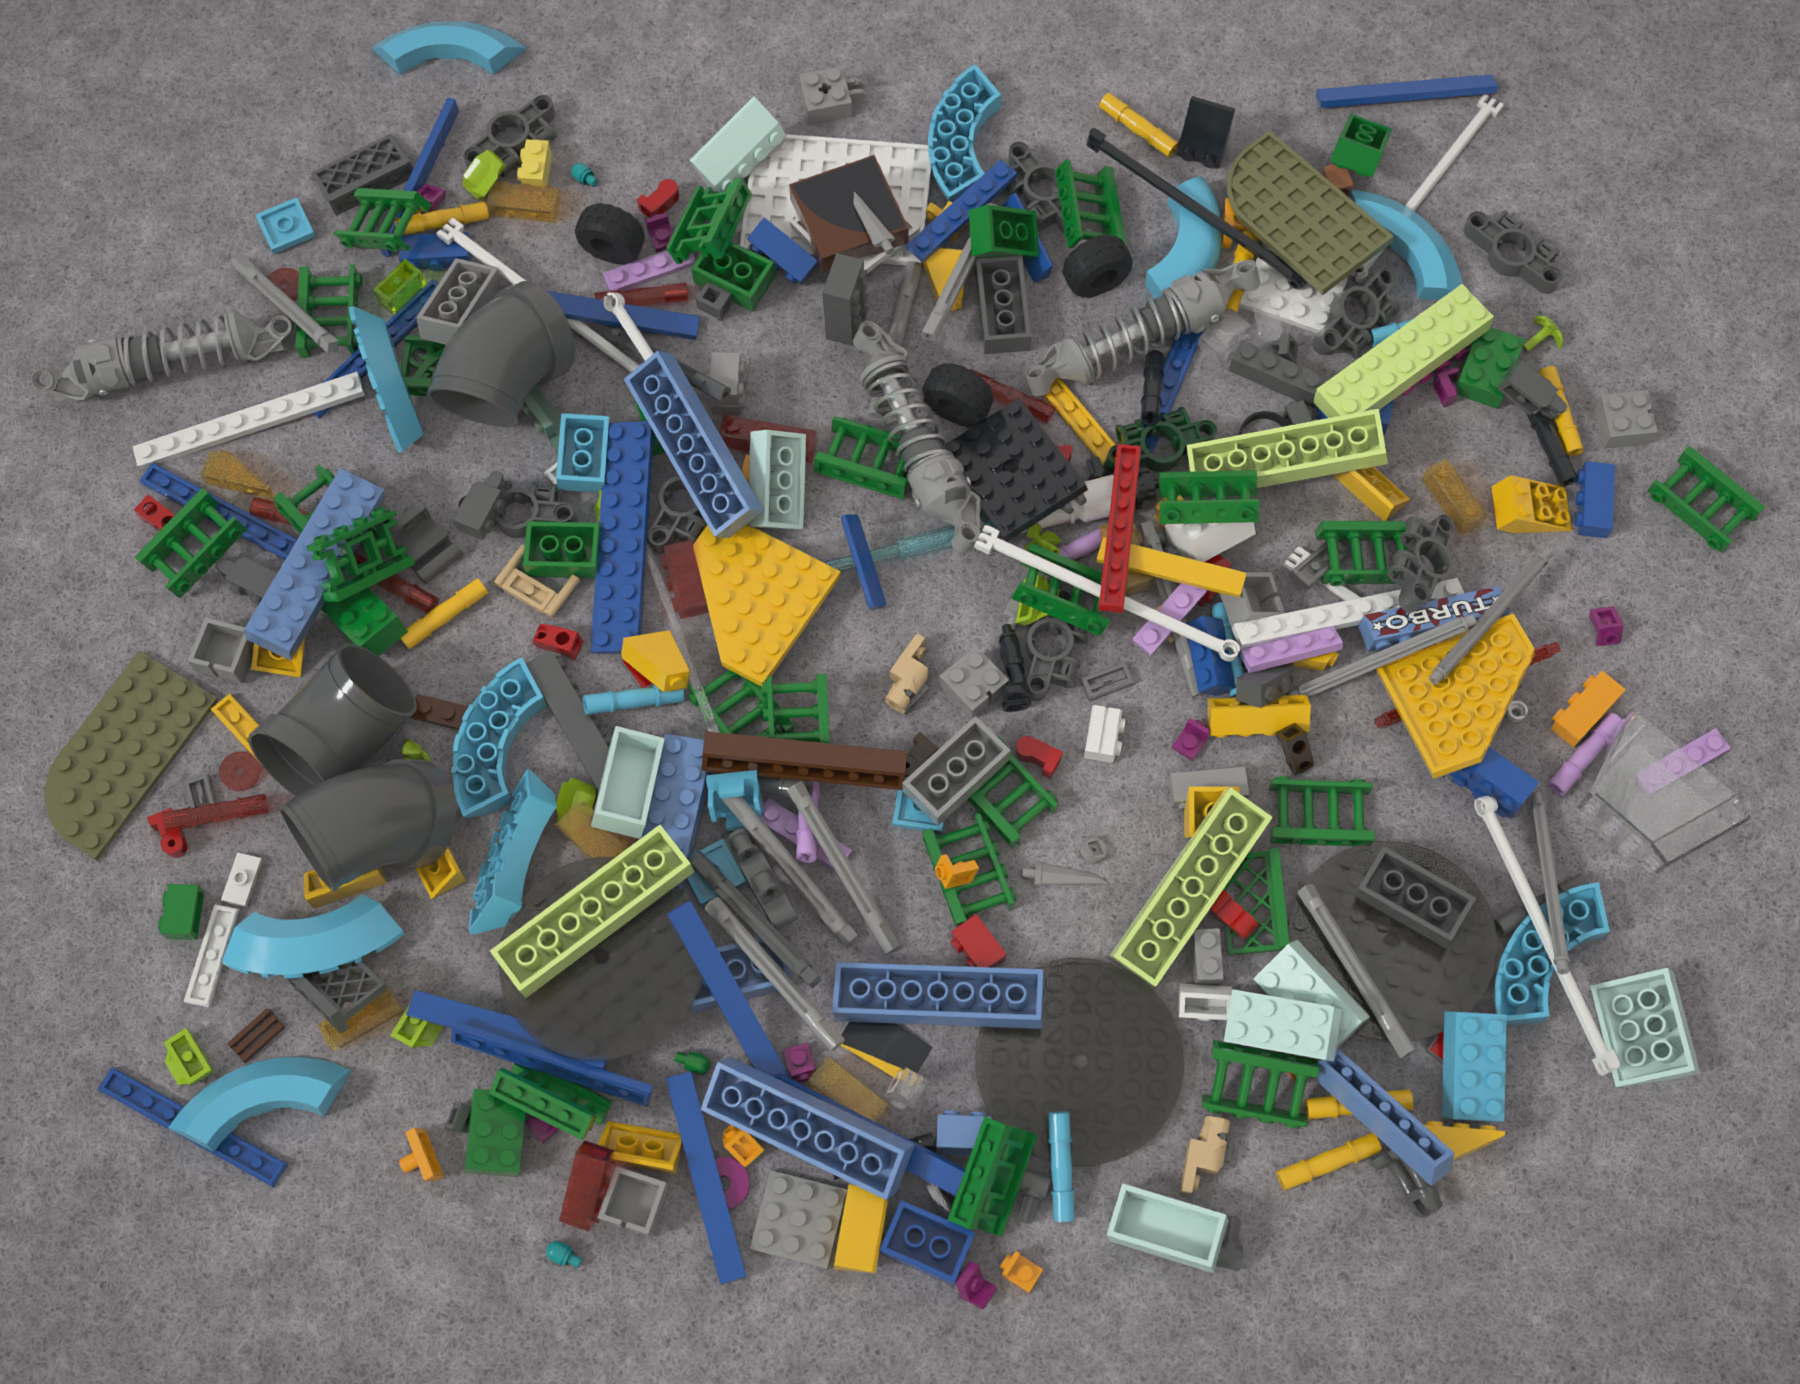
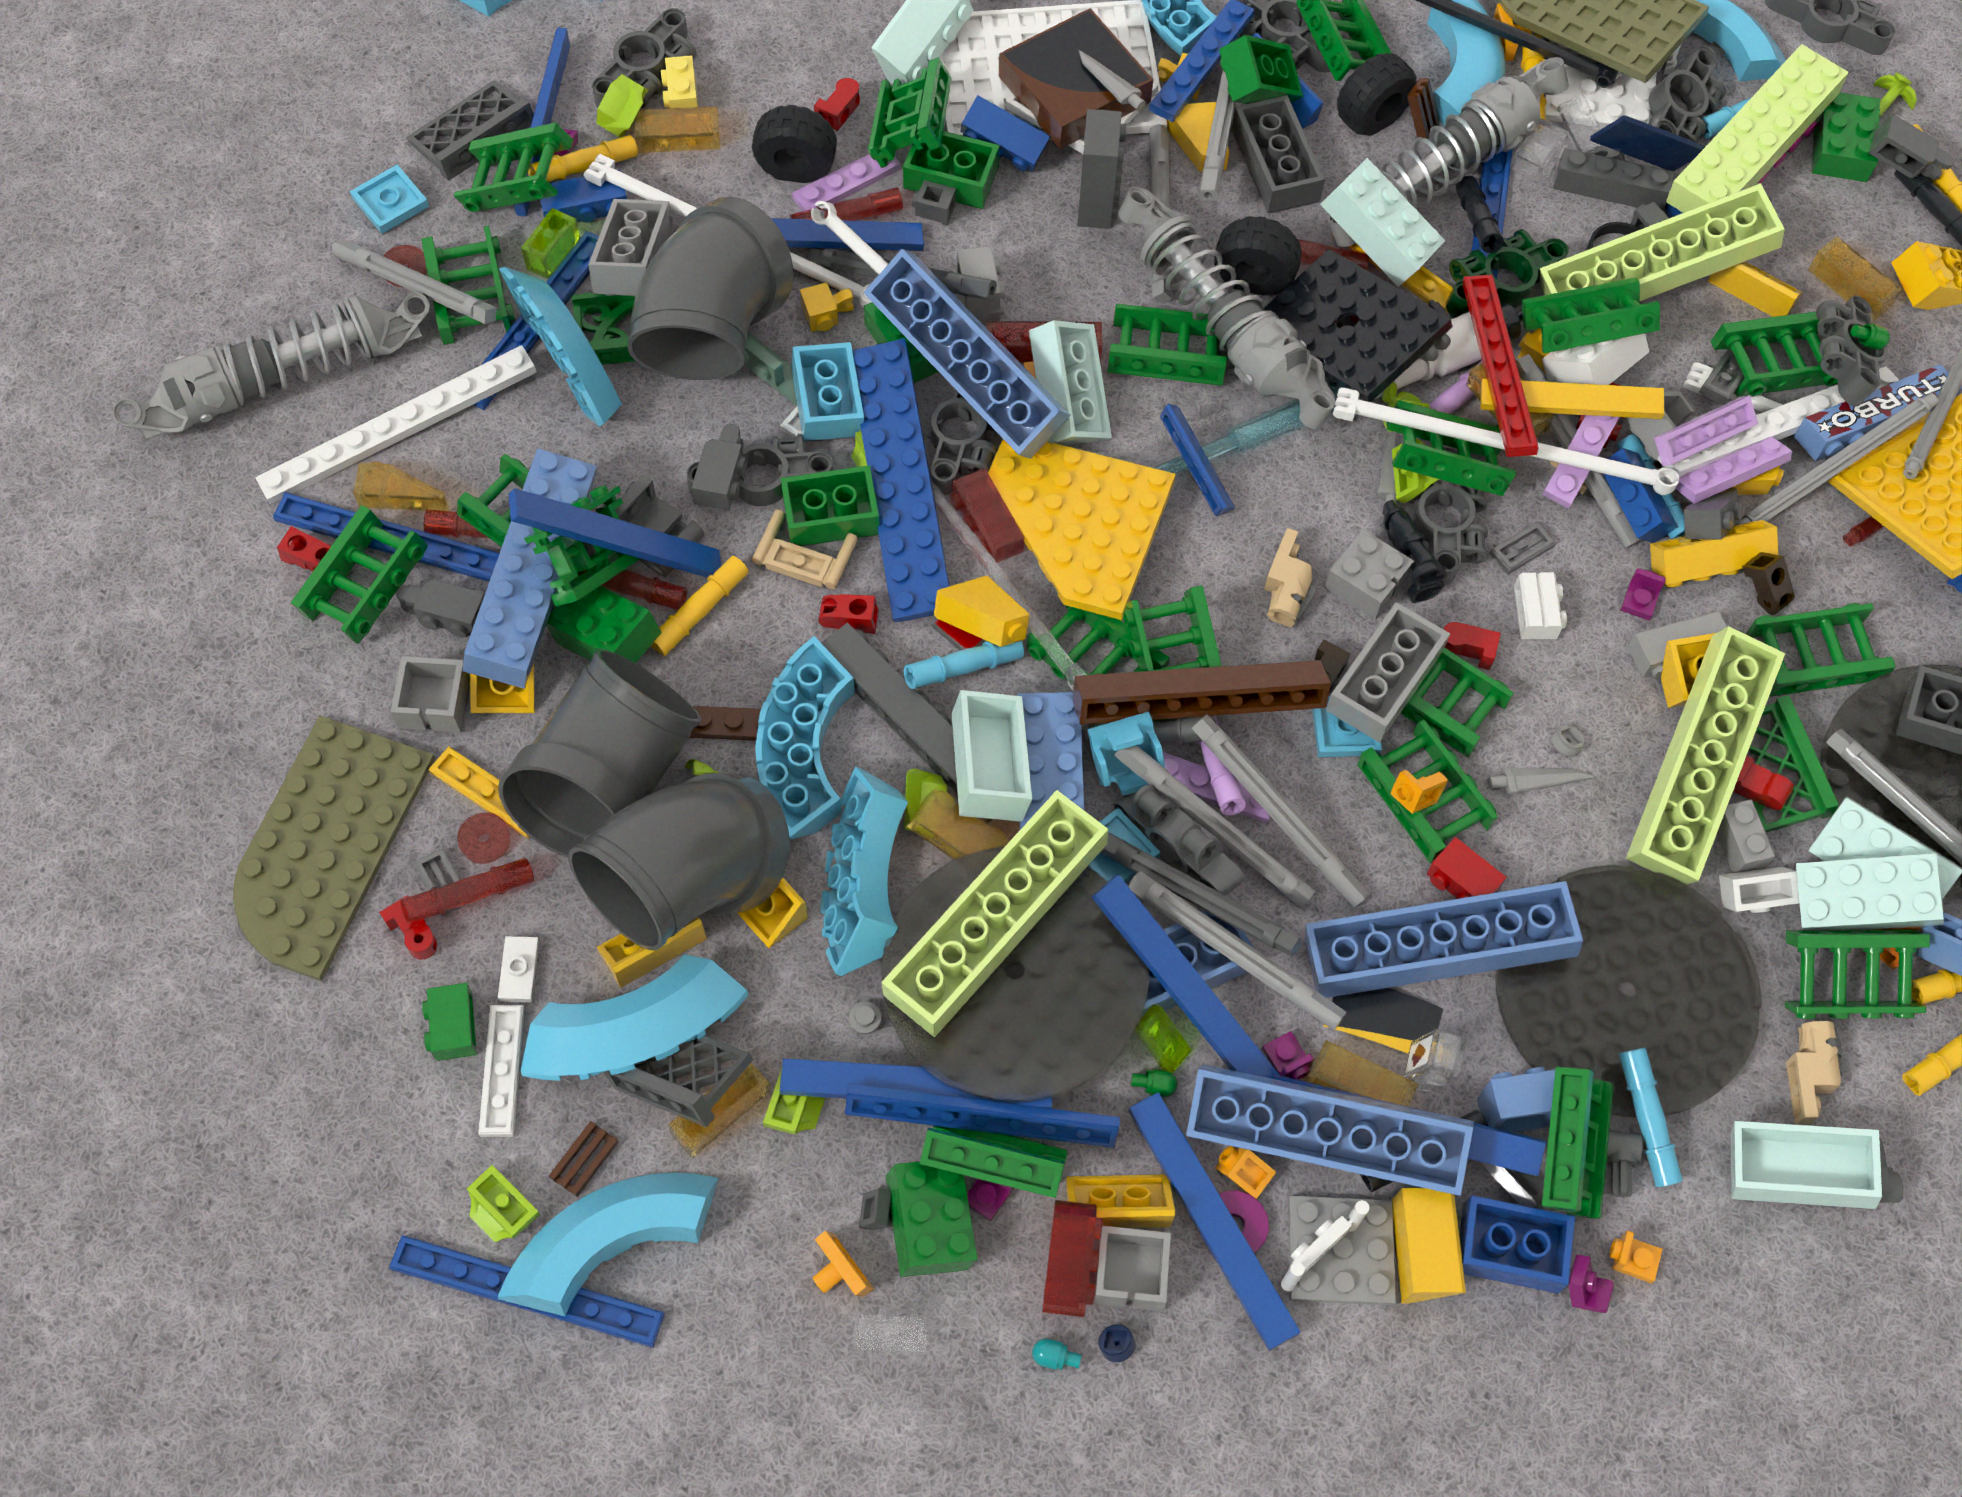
camera: 15 degrees left, 5 degrees down
(379, 551) = (612, 533): none -> blue tile
(487, 968) = (864, 1018): none -> light grey plate
(582, 172) = (737, 89): teal cylinder -> none
(600, 377) = (822, 307): none -> yellow brick
(610, 1255) = (1116, 1343): none -> dark blue tile
(659, 231) = (850, 140): magenta bracket -> none
(704, 1030) = (1162, 1039): none -> clear neon green plate
(765, 1220) = (1328, 1235): none -> white plate
(1065, 384) = (1382, 222): none -> light aqua brick
(1137, 281) = (1423, 107): none -> reddish brown tile
(1272, 614) = (1706, 430): none -> lavender plate
(1308, 349) = (1647, 143): none -> dark blue piece
(1440, 554) = (1871, 335): none -> green cylinder
(1444, 385) = (1804, 166): magenta bracket -> none

